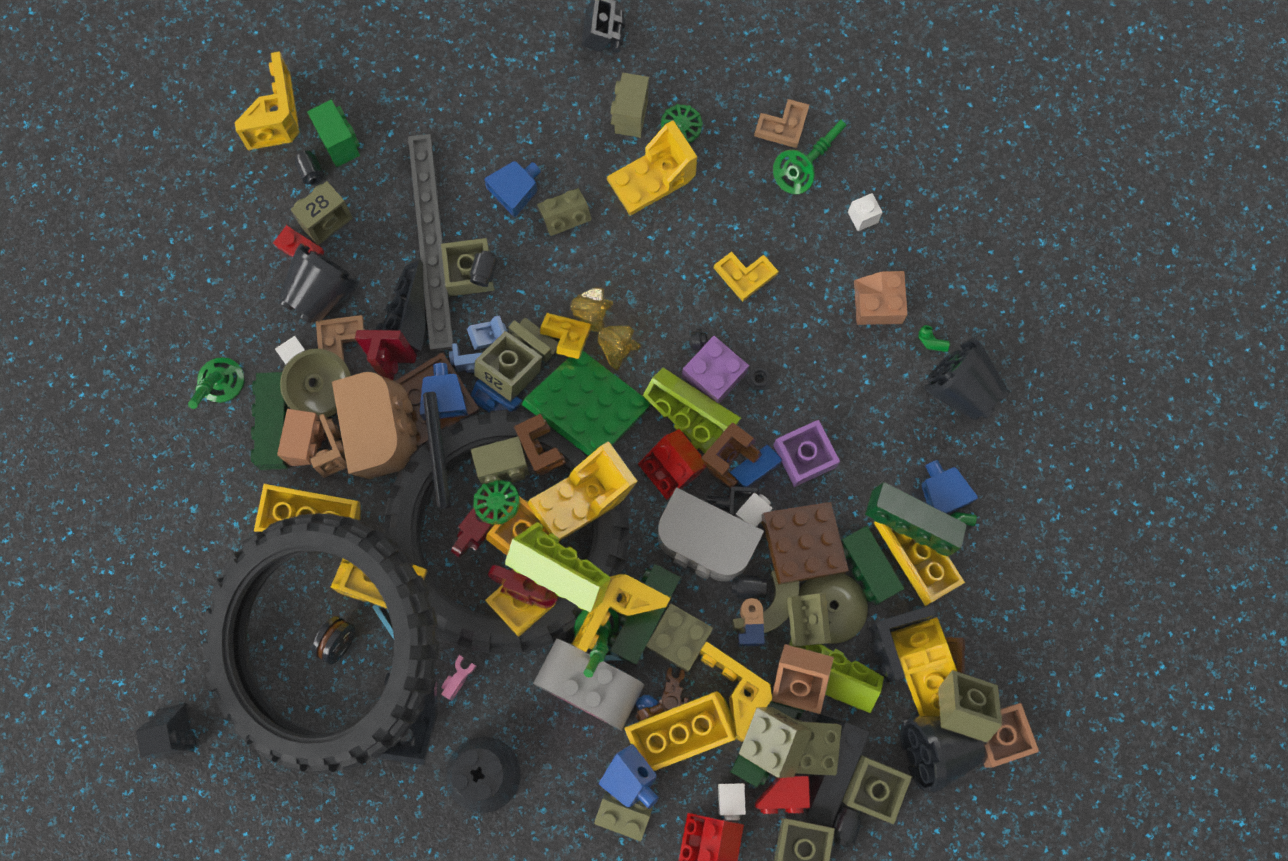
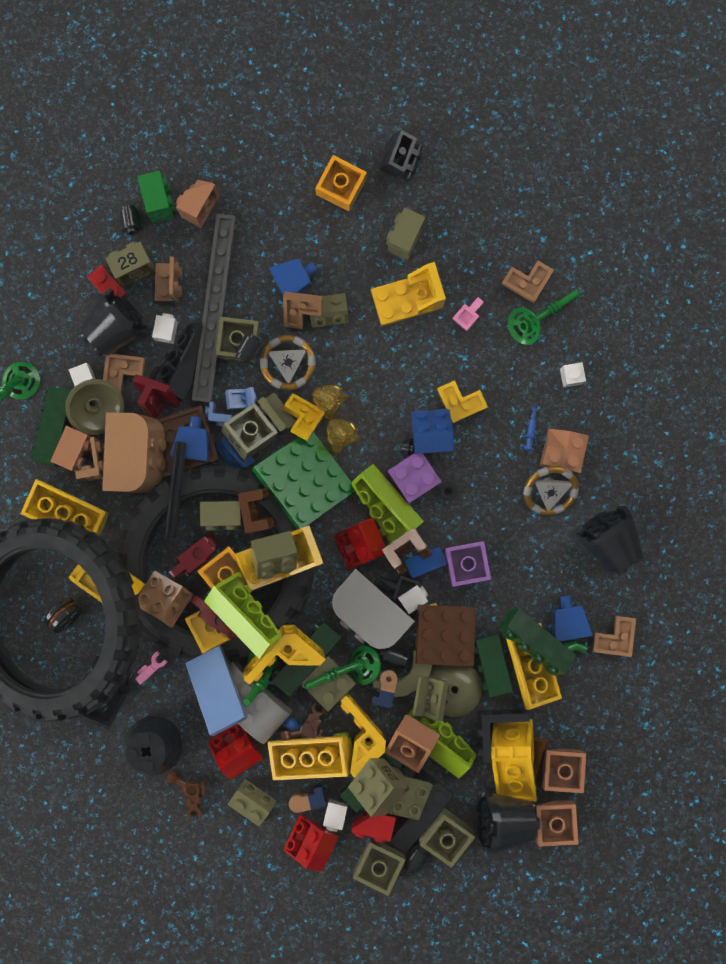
camera: 15 degrees right, 10 degrees up
(264, 128) = (106, 176): yellow bracket -> none
(369, 224) = (167, 281): none -> medium nougat bracket
(378, 277) = (165, 328): none -> white brick
(383, 128) = (197, 202): none -> nougat slope
(455, 581) = (164, 598): none -> medium nougat bracket
(496, 502) = (210, 547): green wheel -> none
(526, 211) = (297, 305): none -> medium nougat plate
(532, 278) = (287, 362): none -> piece
(542, 69) = (341, 183): none -> light orange brick
(546, 674) = (216, 691): none -> medium blue tile
(546, 820) = (191, 789): none -> reddish brown piece
(575, 485) = (274, 555): none -> olive brick
(585, 752) = (234, 751): none -> red slope
(630, 778) = (262, 781): torso -> none
(683, 121) = (444, 257): green wheel -> none
(685, 796) = (308, 801): none -> leg
(710, 606) = (356, 664): none -> green dish
(722, 311) = (432, 431): none -> blue brick
(726, 177) = (466, 315): none -> bright pink plate
(836, 292) = (531, 431): none -> blue piece
(879, 345) = (551, 490): none -> light grey piece
(929, 340) = (594, 496): green arm -> none
(969, 706) = (533, 799): olive brick -> none
(996, 663) = (564, 770): none -> nougat slope
(1013, 497) = (620, 642): none -> medium nougat plate

